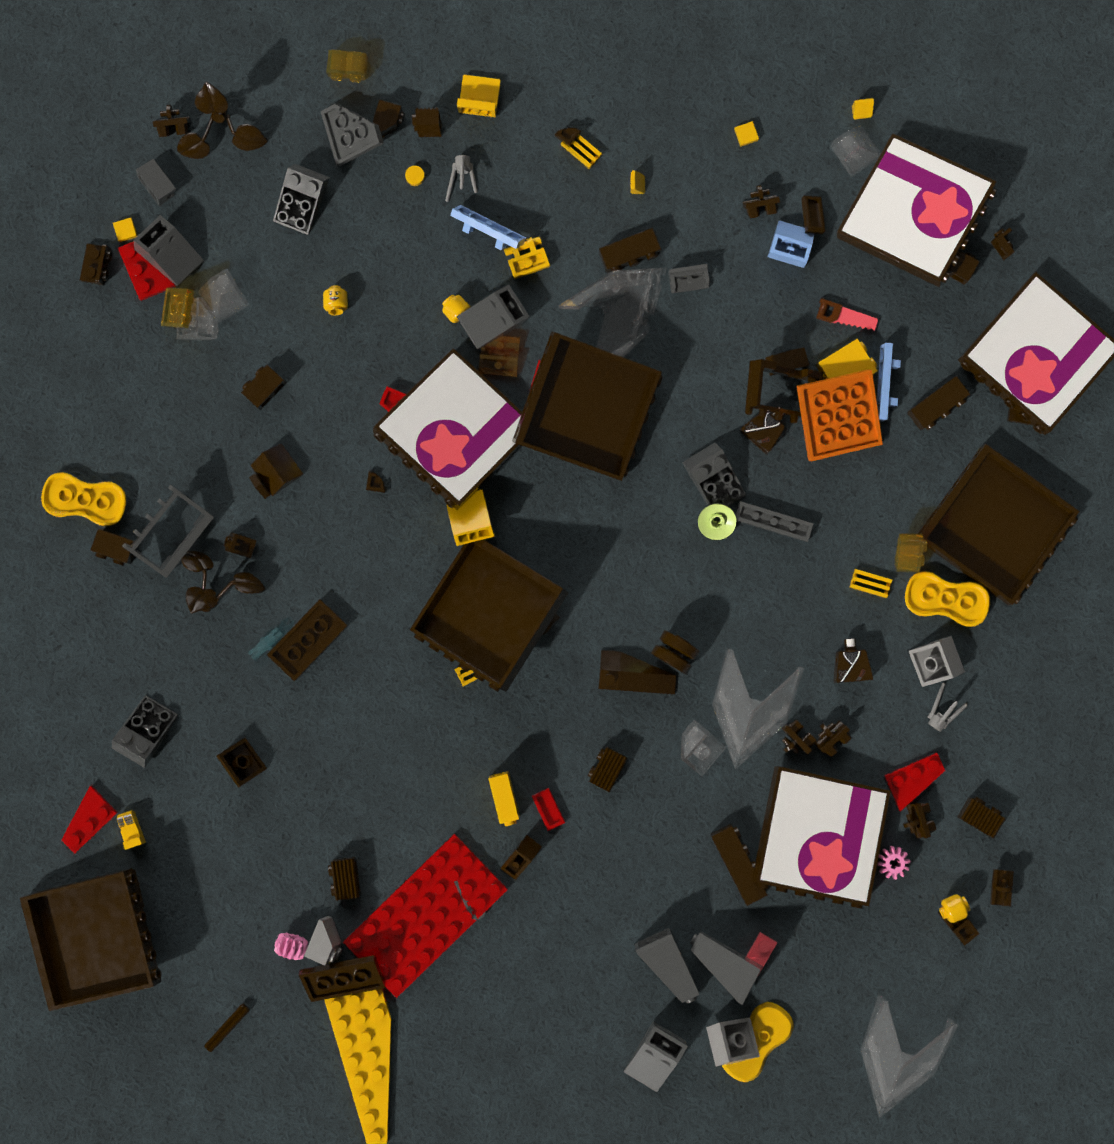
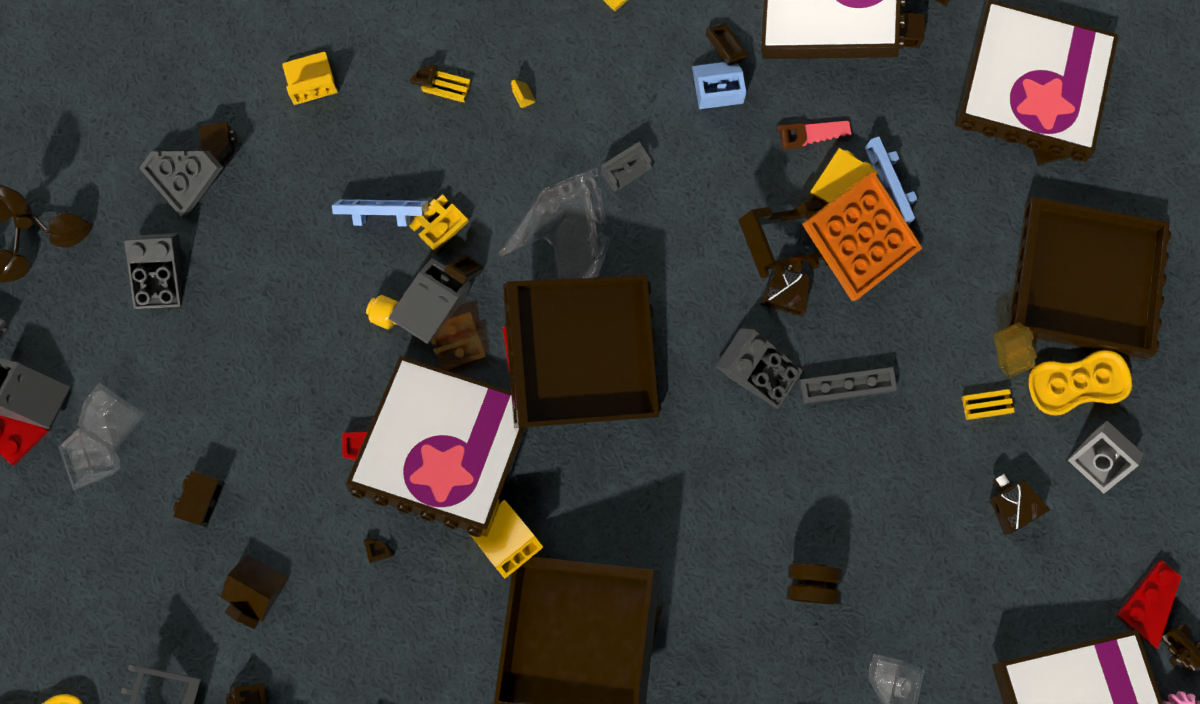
camera: 30 degrees left, 10 degrees down
(177, 307) = (59, 453): clear yellow plate -> none
(335, 300) = (242, 363): yellow head -> none
(347, 65) = (148, 107): clear yellow brick -> none
(414, 175) = (274, 190): yellow tile -> none
(427, 122) = (263, 126): dark brown brick -> none
(462, 166) = (324, 158): light grey plant -> none
(529, 303) = (464, 269): none -> dark brown tile
(627, 673) = (774, 635): dark brown wedge -> none
(630, 251) = (549, 165): dark brown brick -> none
(721, 528) = (795, 418): yellowish green dish -> none
(747, 721) = (932, 626): clear windscreen -> none
(752, 206) = (675, 52): dark brown hips -> none
(790, 359) = (781, 200): dark brown slope -> none
(804, 743) = (1011, 621): dark brown hips -> none
(831, 735) = (1036, 599): dark brown hips -> none
(939, 404) = (959, 179): dark brown brick -> none
(941, 721) = (1143, 522): light grey plant -> none

